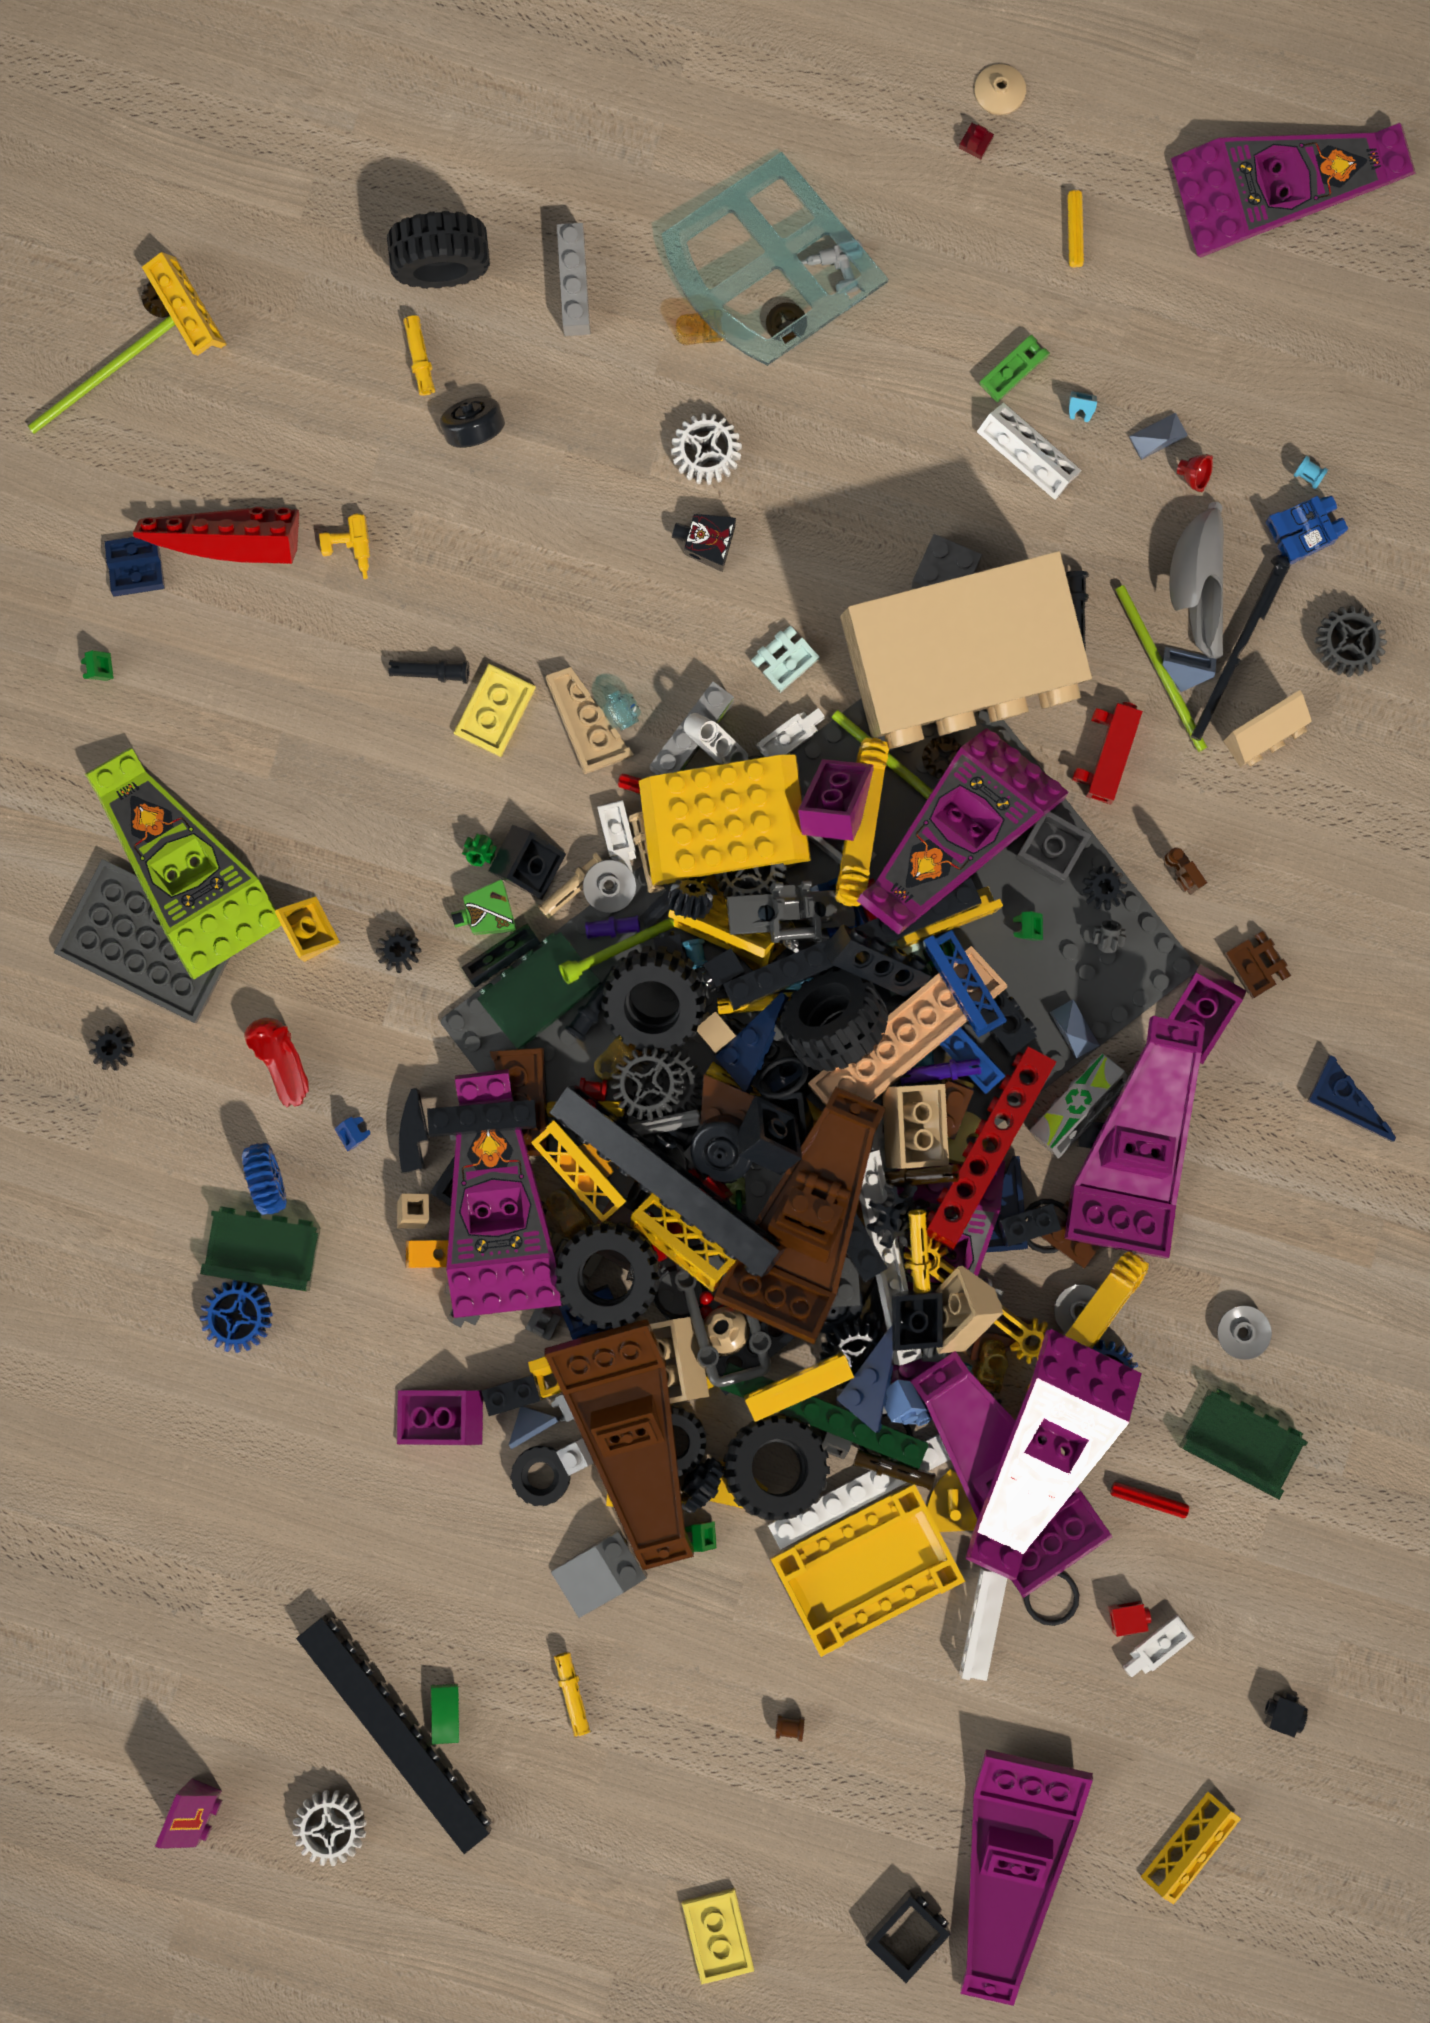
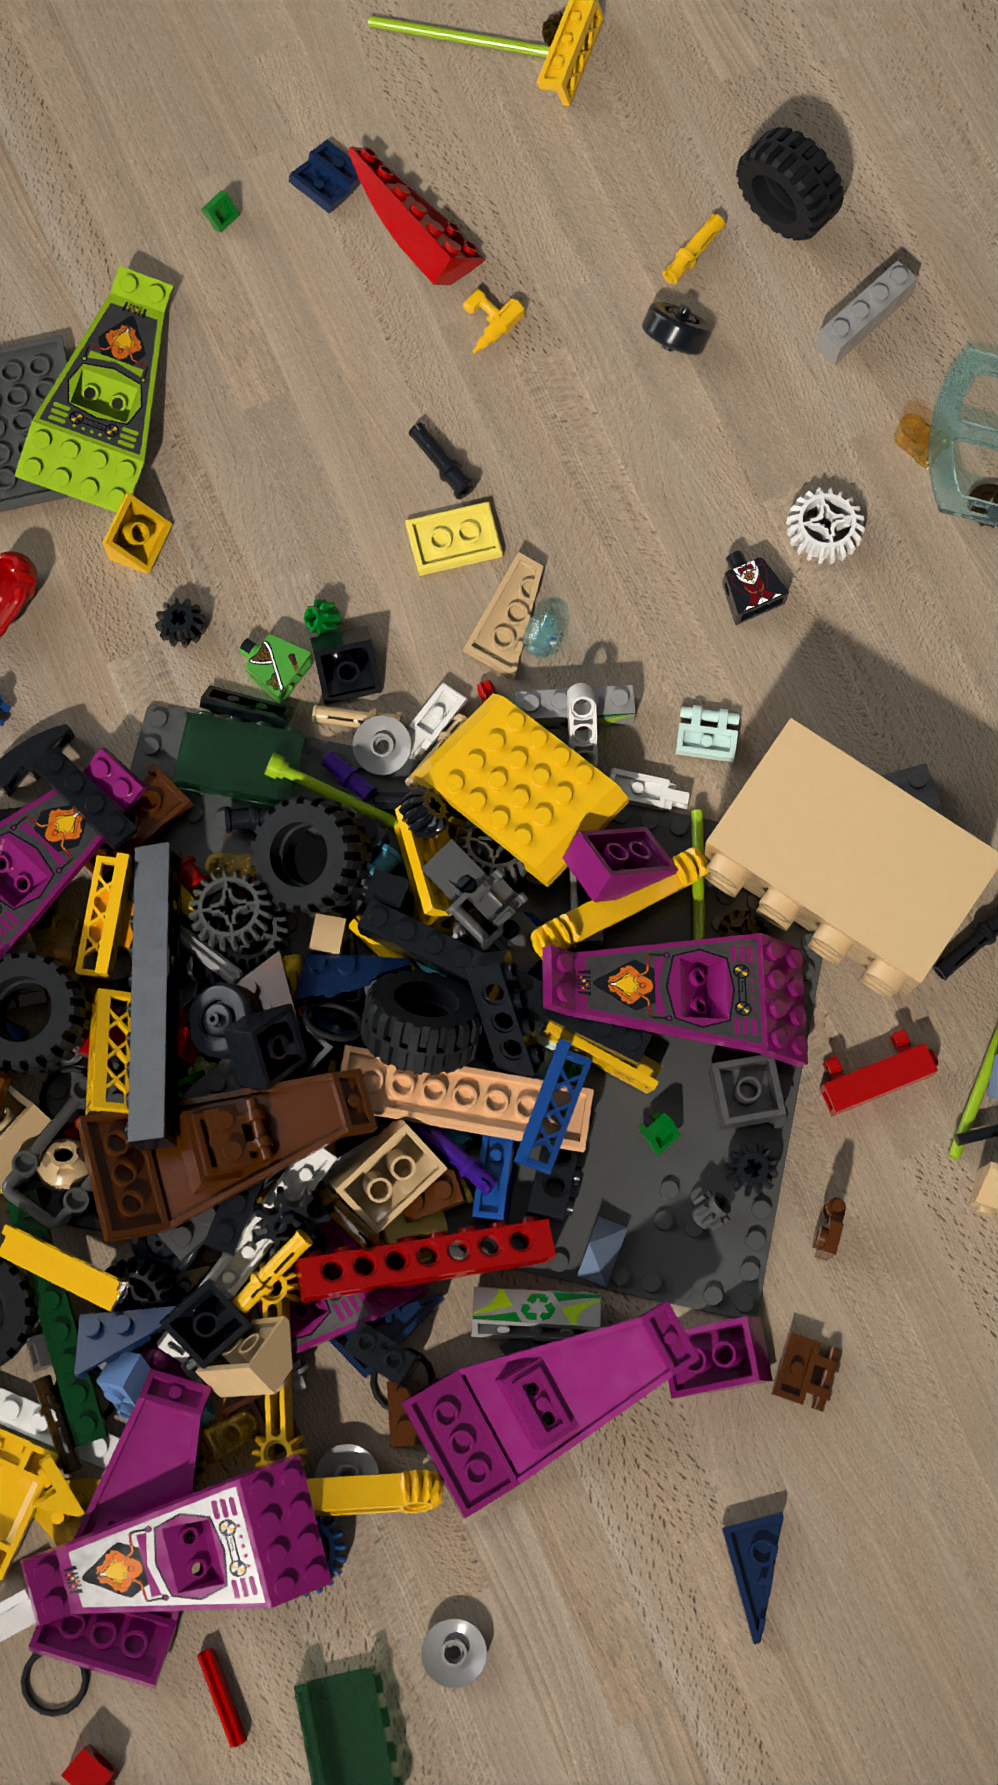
camera: 45 degrees right, 10 degrees down
(944, 1502) = (61, 1497): none -> yellow slope

